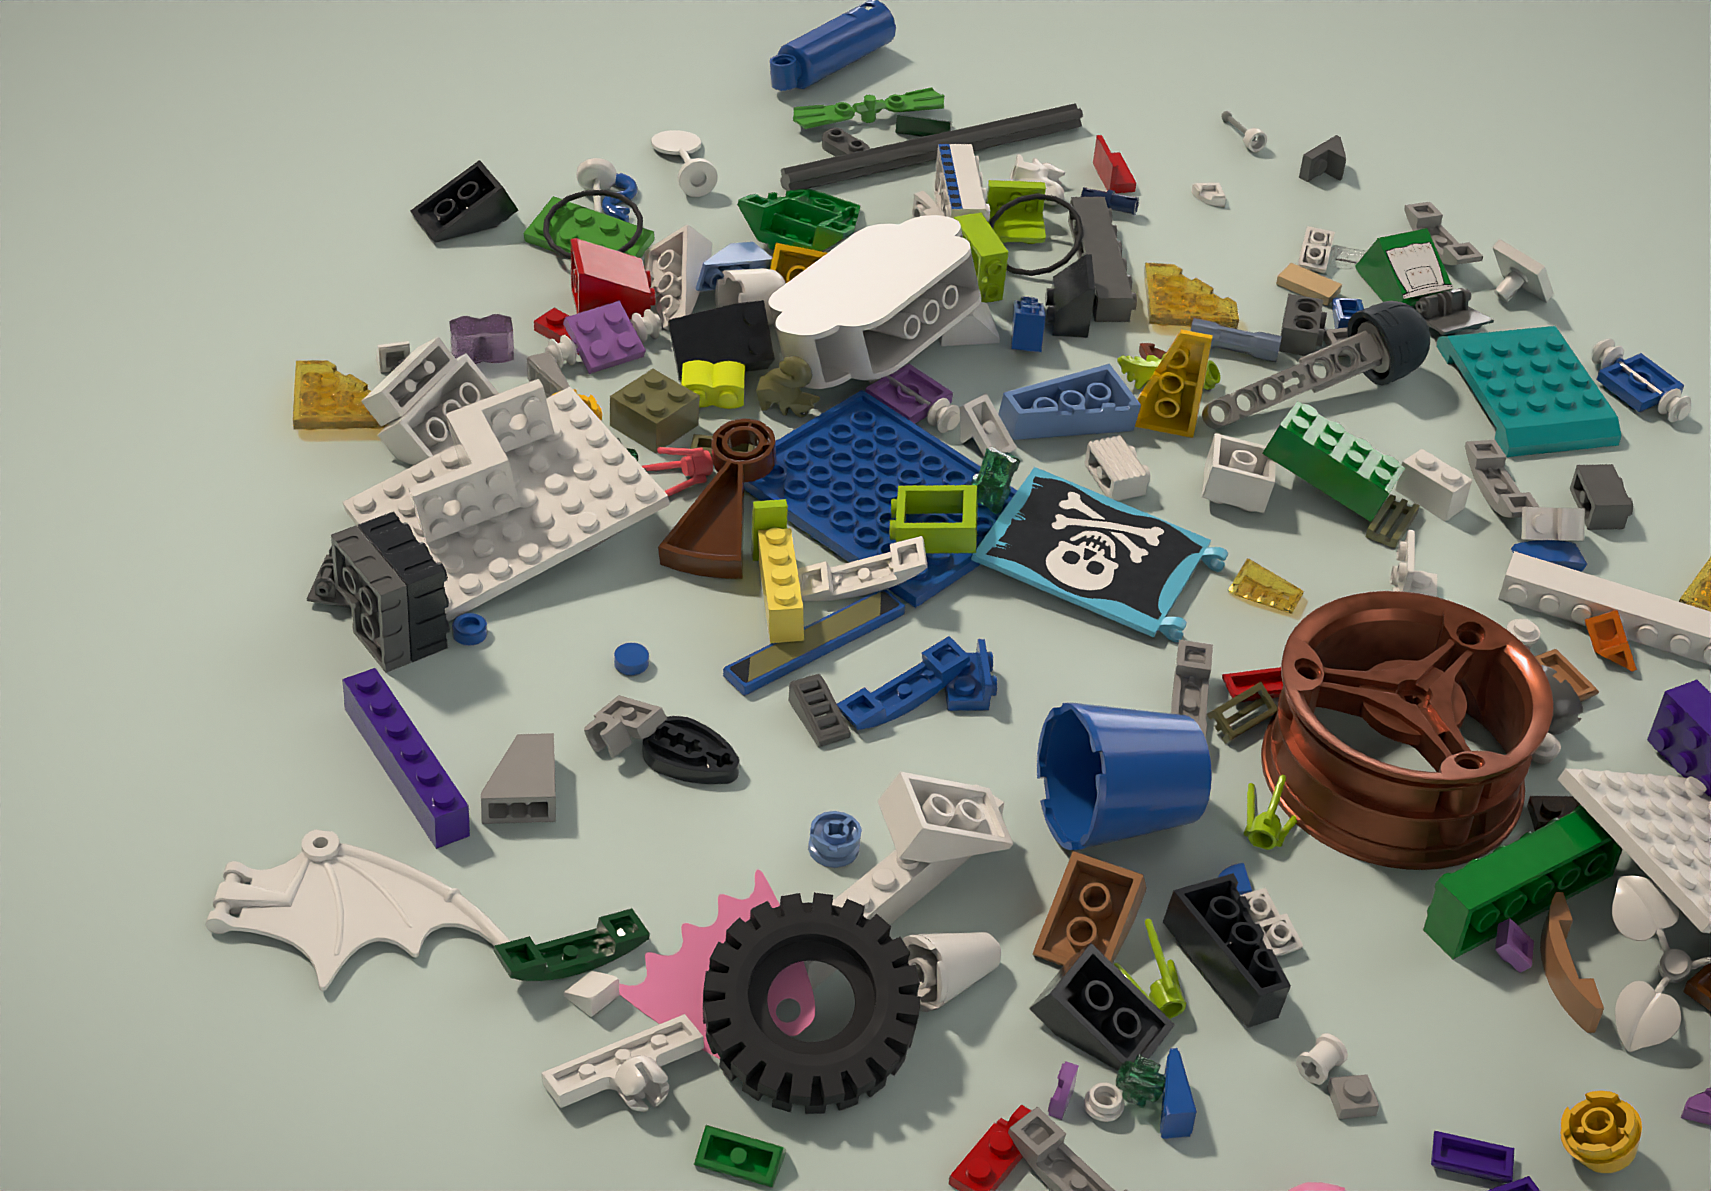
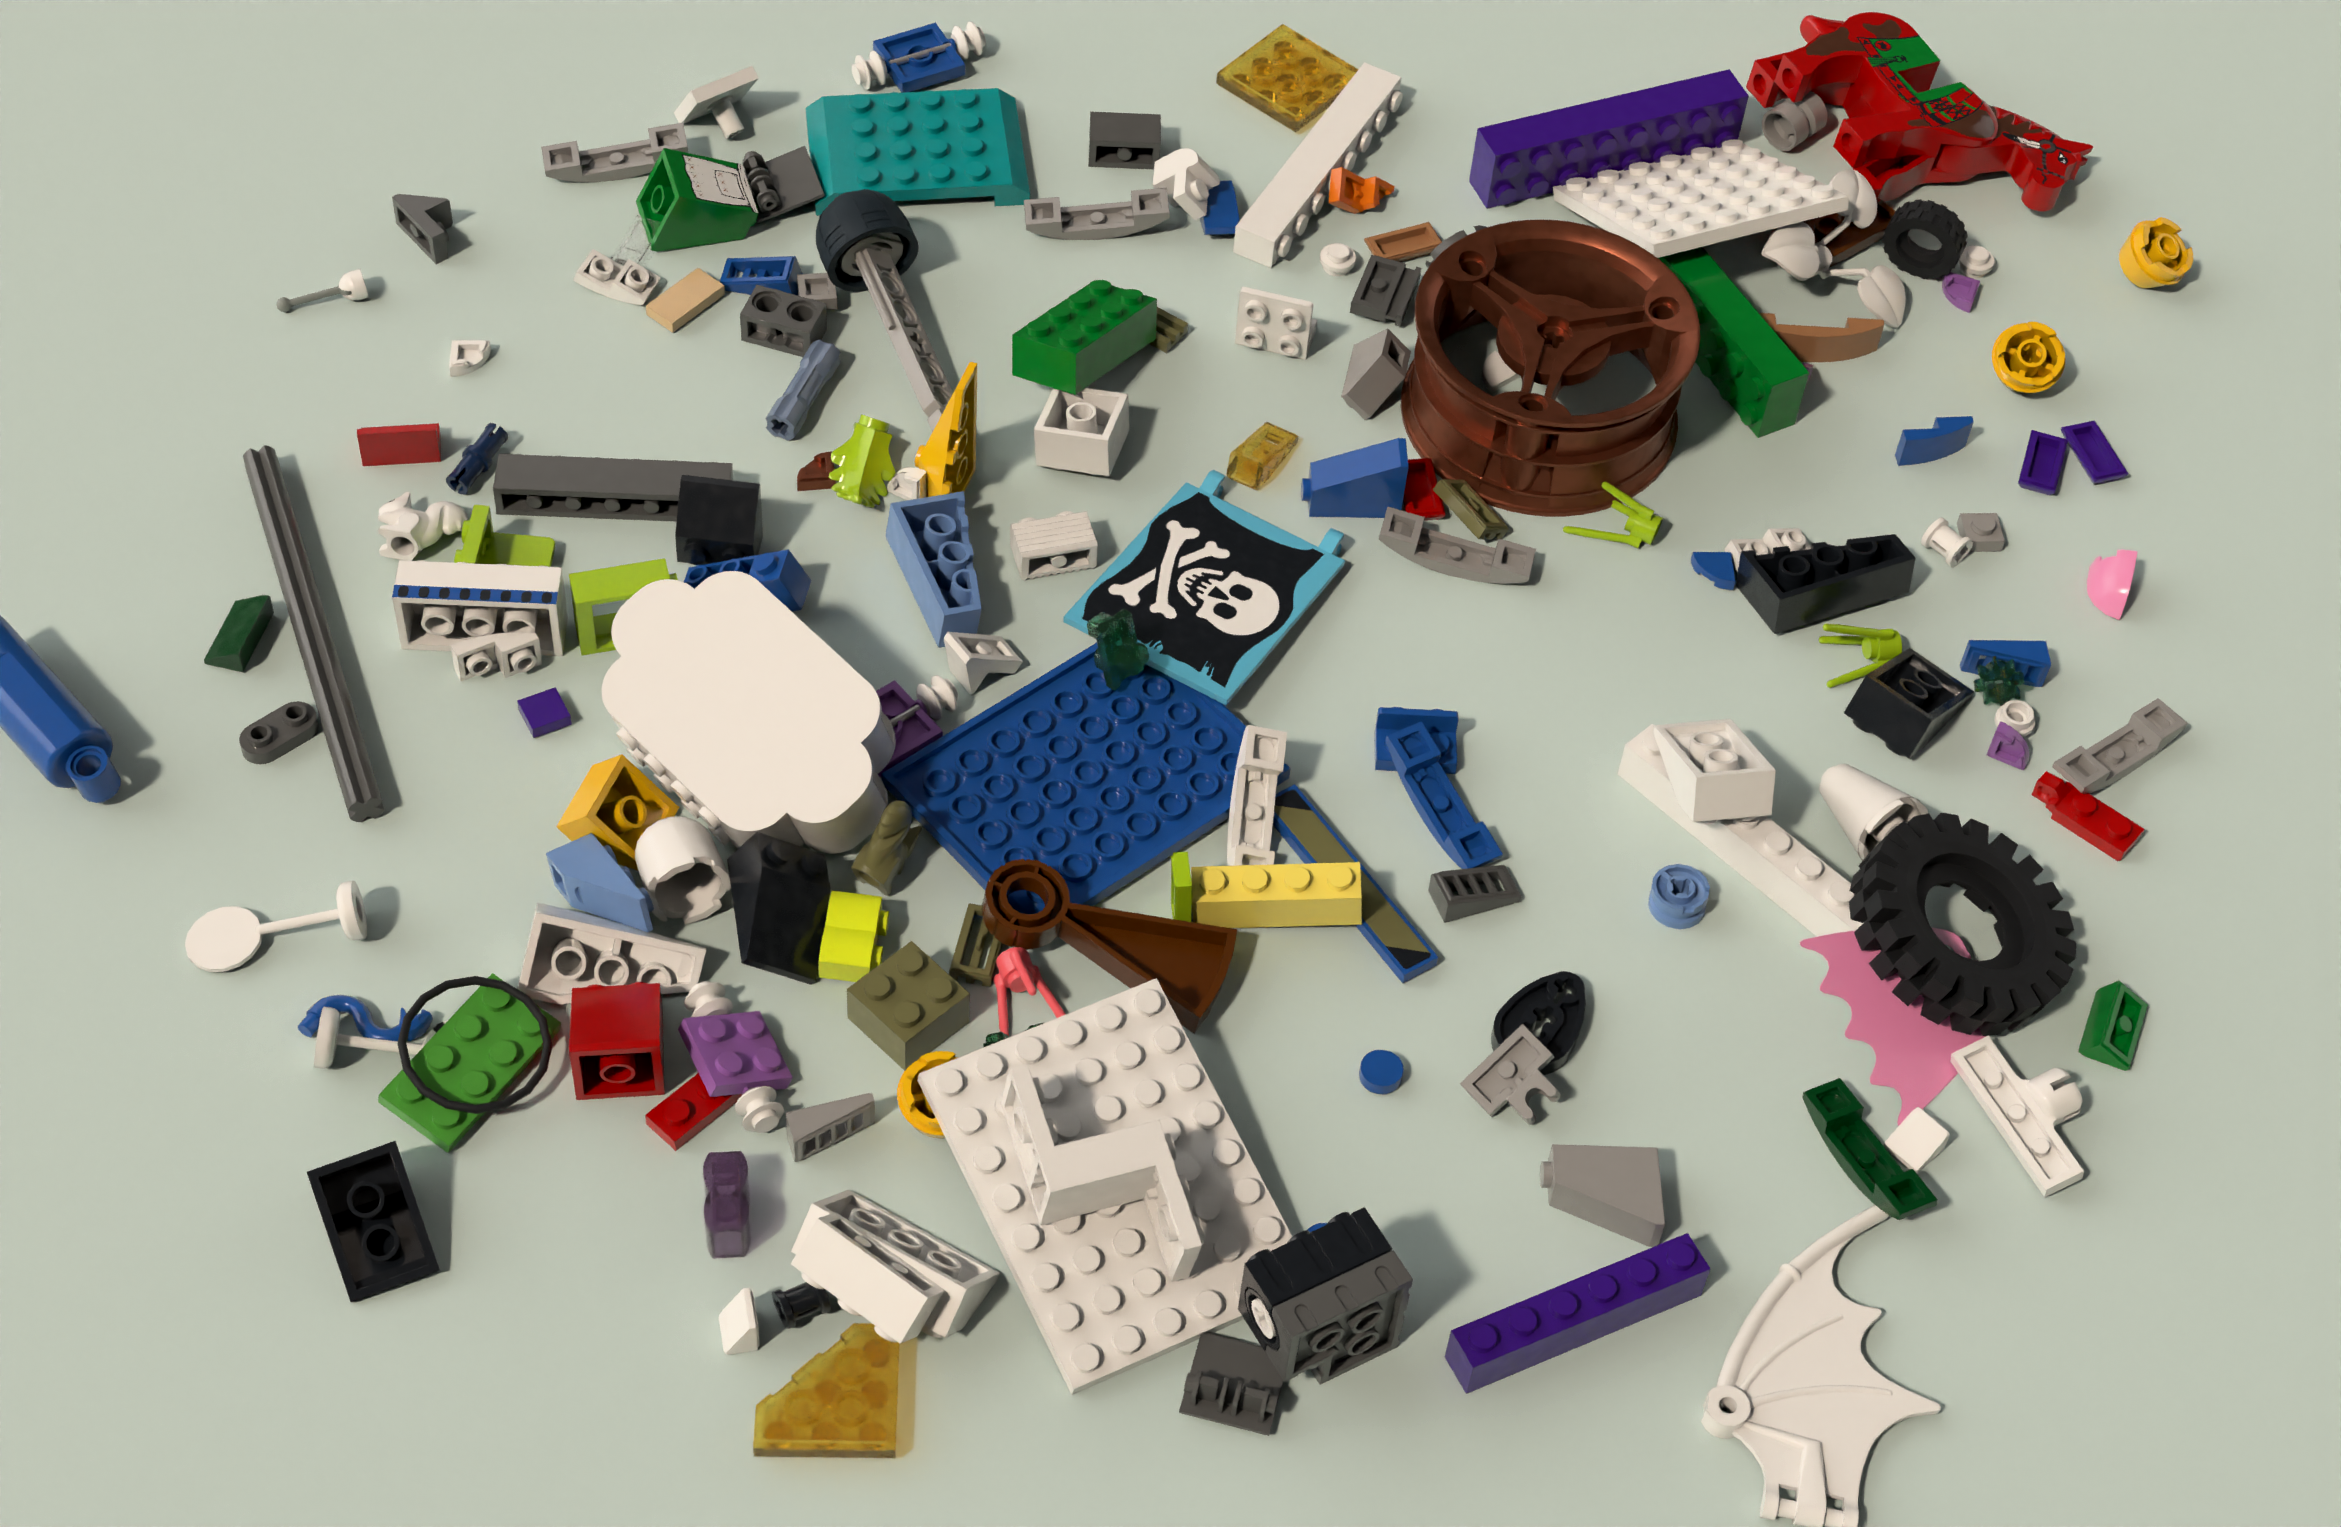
camera: 85 degrees left, 10 degrees up
(800, 218) = (485, 790): green wedge -> none
(910, 101) = (200, 743): bright green piece -> none
(937, 500) = (1181, 686): lime window -> none
(1049, 198) = (568, 487): black piece -> none
(1091, 906) = (1781, 686): medium nougat slope -> none
(1120, 773) = (1629, 614): blue cone -> none
(1178, 300) = (710, 423): clear yellow plate -> none
(1239, 634) = (1358, 482): none -> blue slope
(1433, 485) = (1109, 259): white brick -> none
(1462, 1062) = (1928, 445): none -> blue slope

